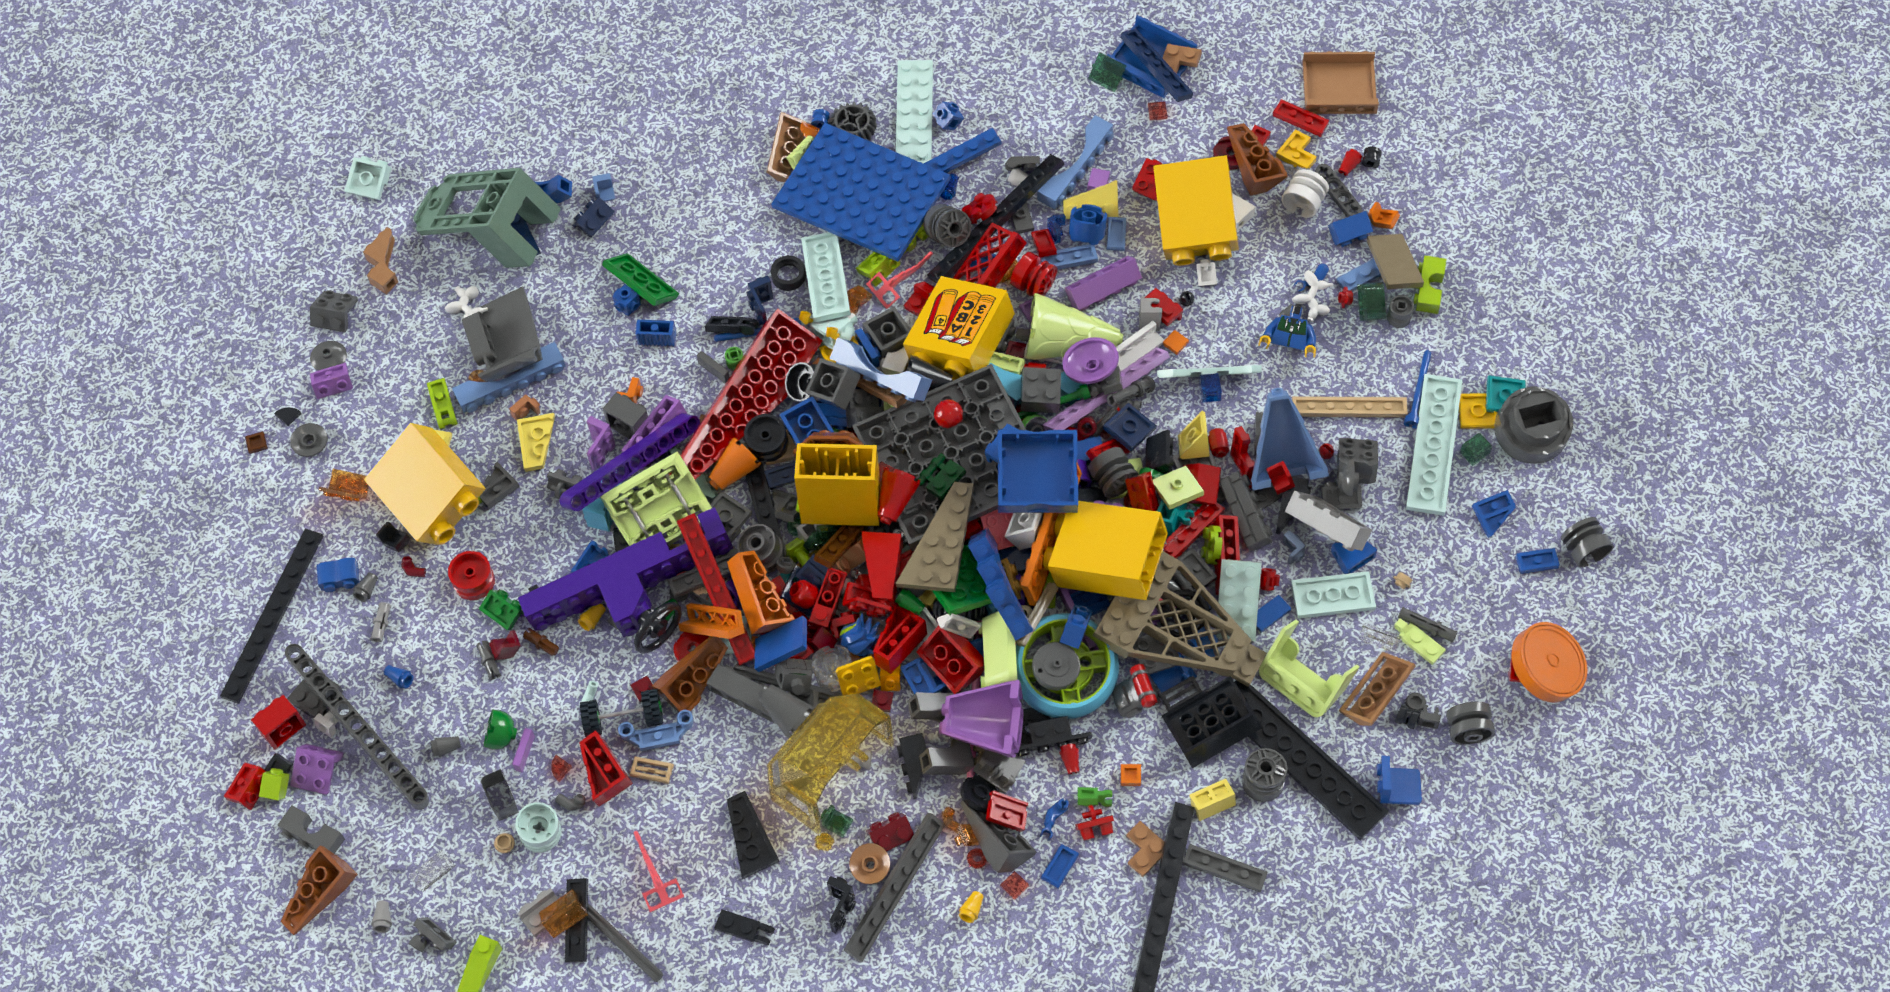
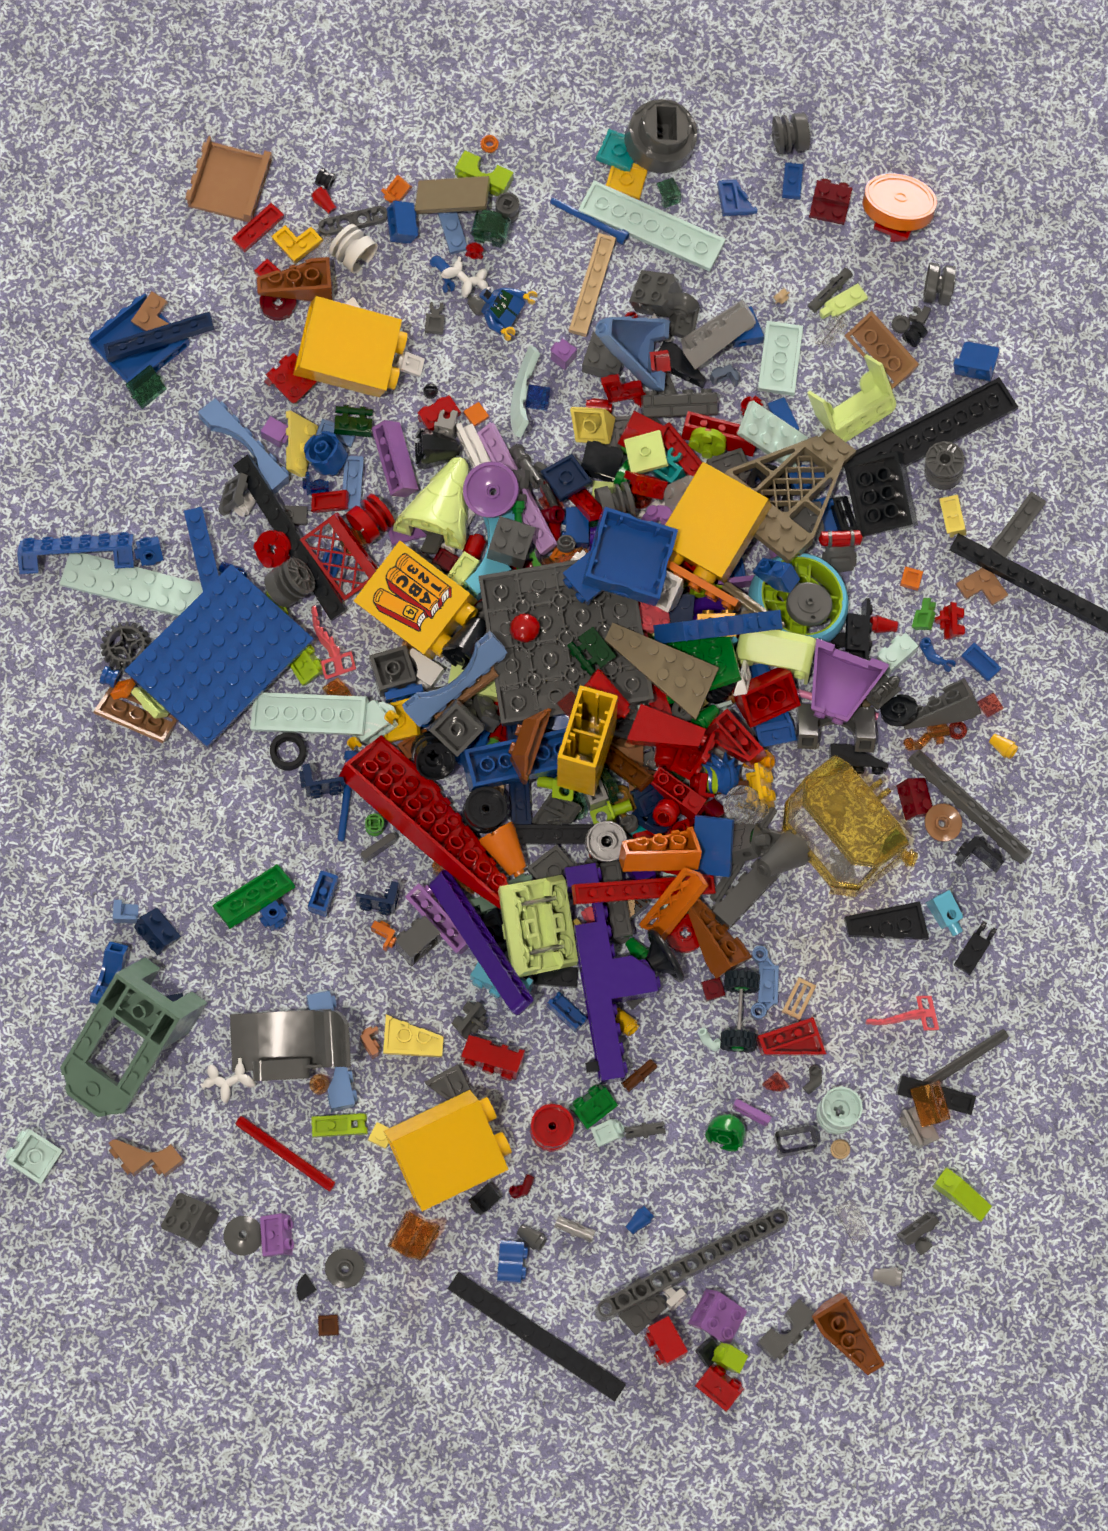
camera: 85 degrees left, 10 degrees up
(408, 368) = (285, 1153): none -> red axle
(444, 745) = (726, 1187): dark grey cone -> none
(479, 628) = (608, 1132): none -> light aqua bracket
(505, 647) = (636, 1108): dark red panel -> none
(530, 511) = (492, 1057): none -> red wedge
(602, 439) = (426, 972): medium lavender bracket -> none
(660, 384) = (385, 905): none -> dark blue bracket
(731, 325) = (335, 818): black hinge -> none
(777, 880) = (940, 906): none -> medium azure torso
(883, 700) = (782, 774): dark red plate -> none
(919, 297) = (355, 632): red slope -> none
(944, 82) = (120, 545): none -> blue bracket
(1007, 811) = (923, 691): plate -> none
(1040, 777) = (898, 653): none -> light aqua brick
(1124, 311) = (435, 448): none -> black cone
(1126, 241) = (353, 425): none -> dark green plate
(1157, 110) = (204, 355): clear red tile -> none
(1259, 283) = (435, 321): none -> dark grey plate
(1260, 396) = (563, 353): none -> medium lavender brick
(1466, 278) = (489, 138): none -> orange plate
(1528, 602) = (830, 201): none -> dark red plate

